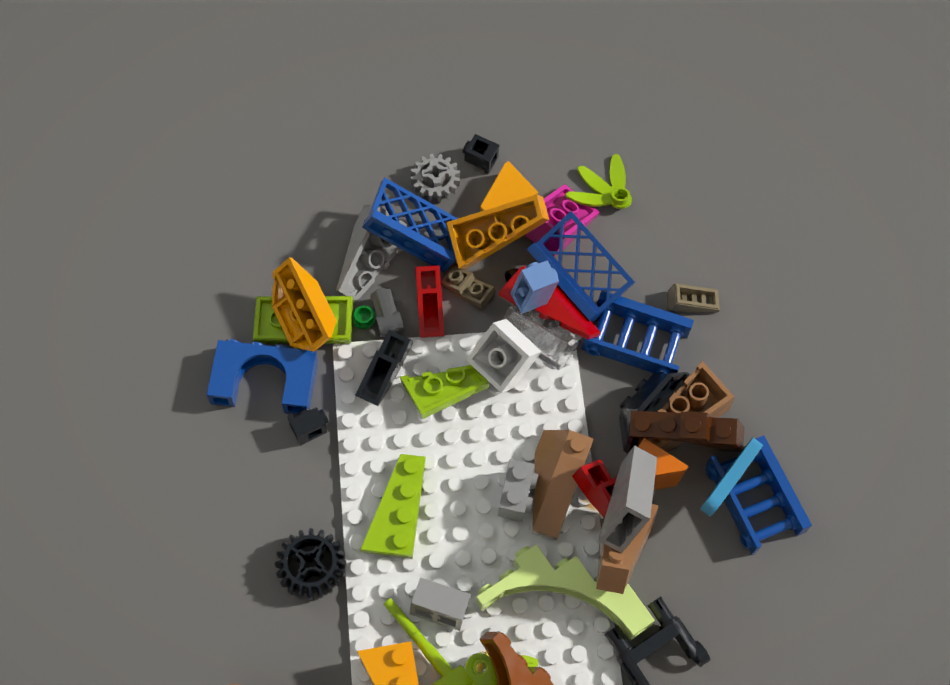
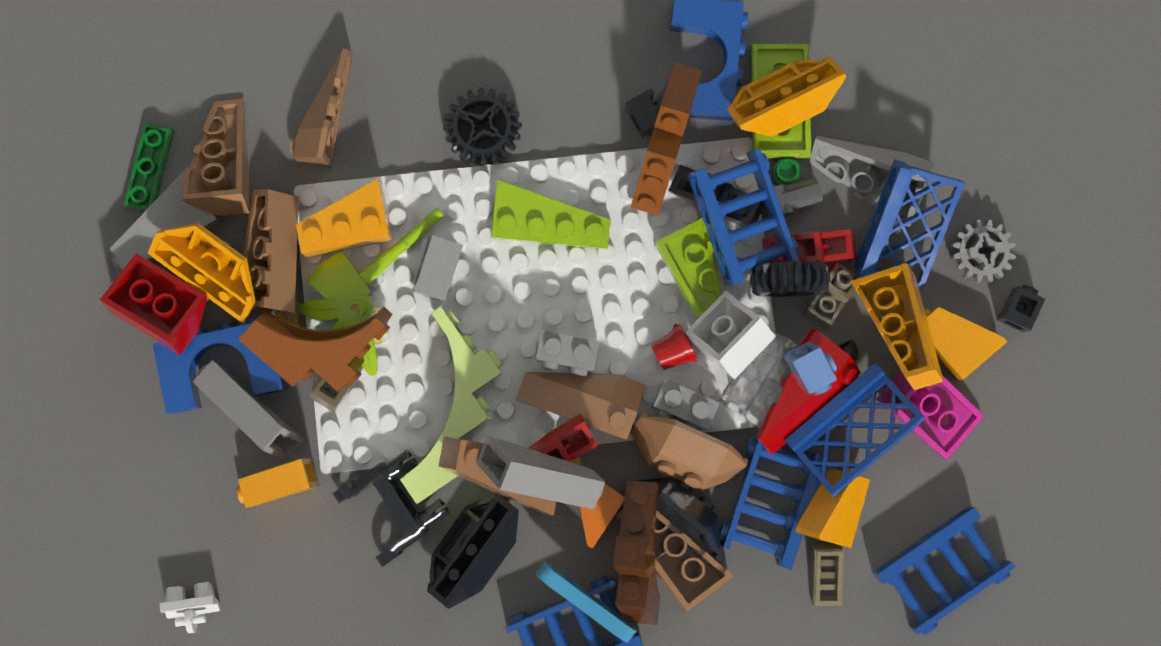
camera: 90 degrees right, 20 degrees up
(342, 397) = (666, 138): none -> dark orange arch
(400, 362) = (714, 212): none -> blue fence
(456, 311) = (790, 279): none -> black gear
(513, 403) = (674, 348): none -> red piece
(561, 395) = (685, 405): none -> light grey brick
(600, 397) = (686, 452): none -> medium nougat wedge
(612, 195) = (974, 473): lime plant -> none
(649, 290) = (835, 517): none -> light orange slope
(675, 233) = (941, 541): none -> blue fence
(690, 578) = (472, 550): none -> black wedge

